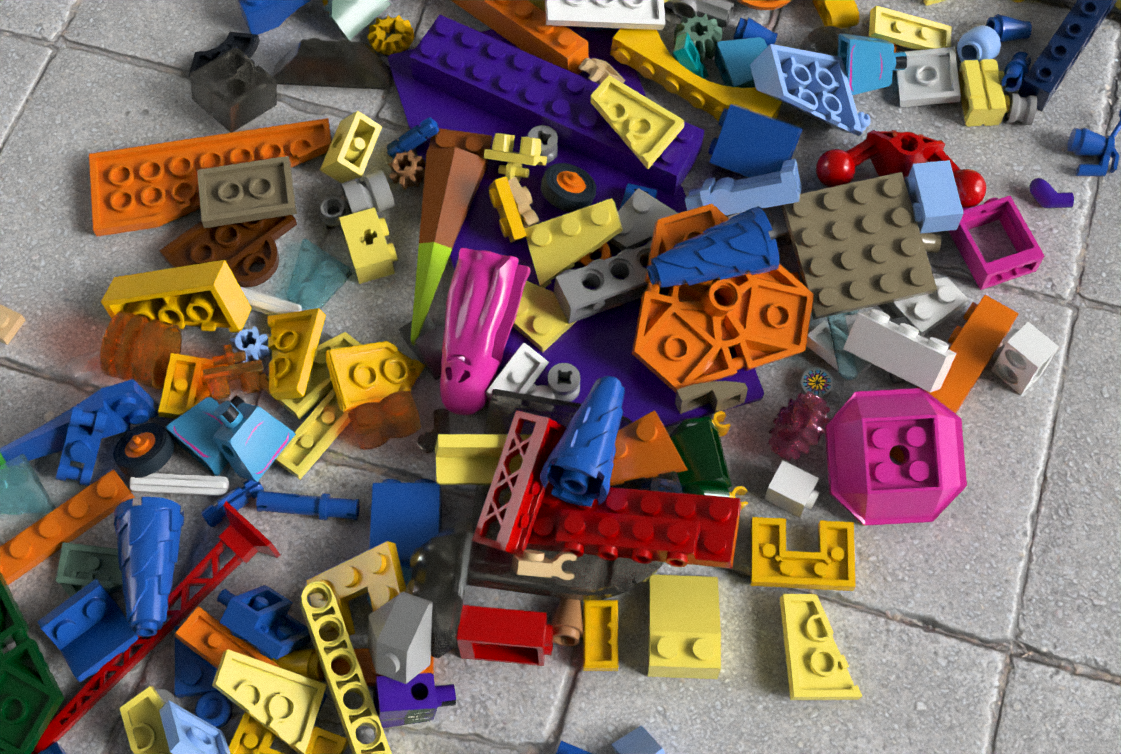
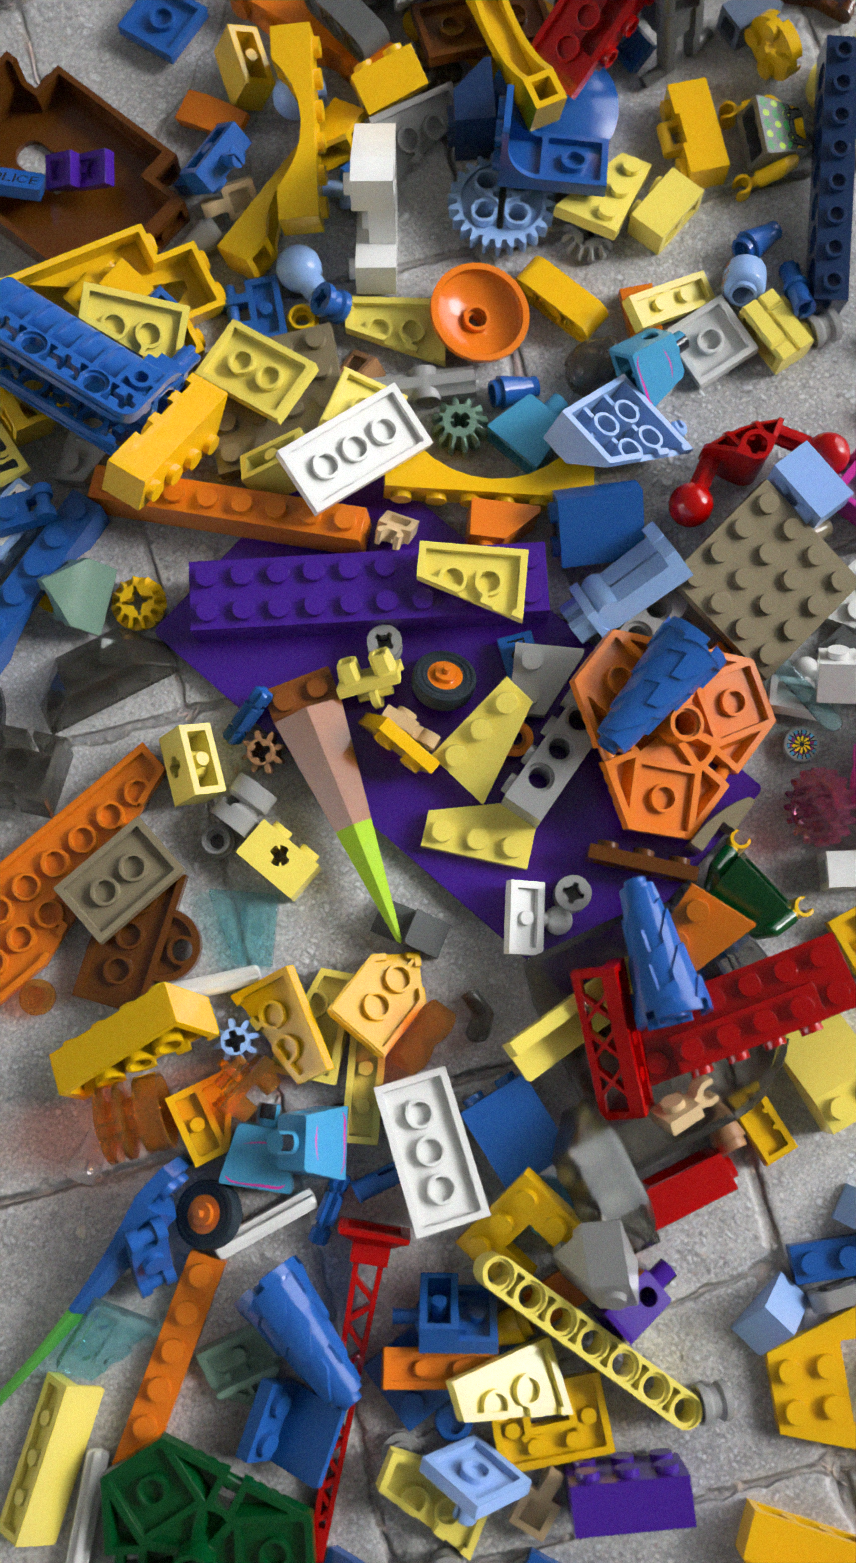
camera: 30 degrees left, 15 degrees up
(135, 242) = (37, 997): none -> clear orange plate
(331, 496) = (431, 1152): none -> white plate
(477, 325) = (457, 890): dark pink piece -> none
(635, 388) = (641, 862): none -> reddish brown plate
(687, 106) = (498, 521): none -> orange slope
(688, 55) = (468, 459): teal plate -> none

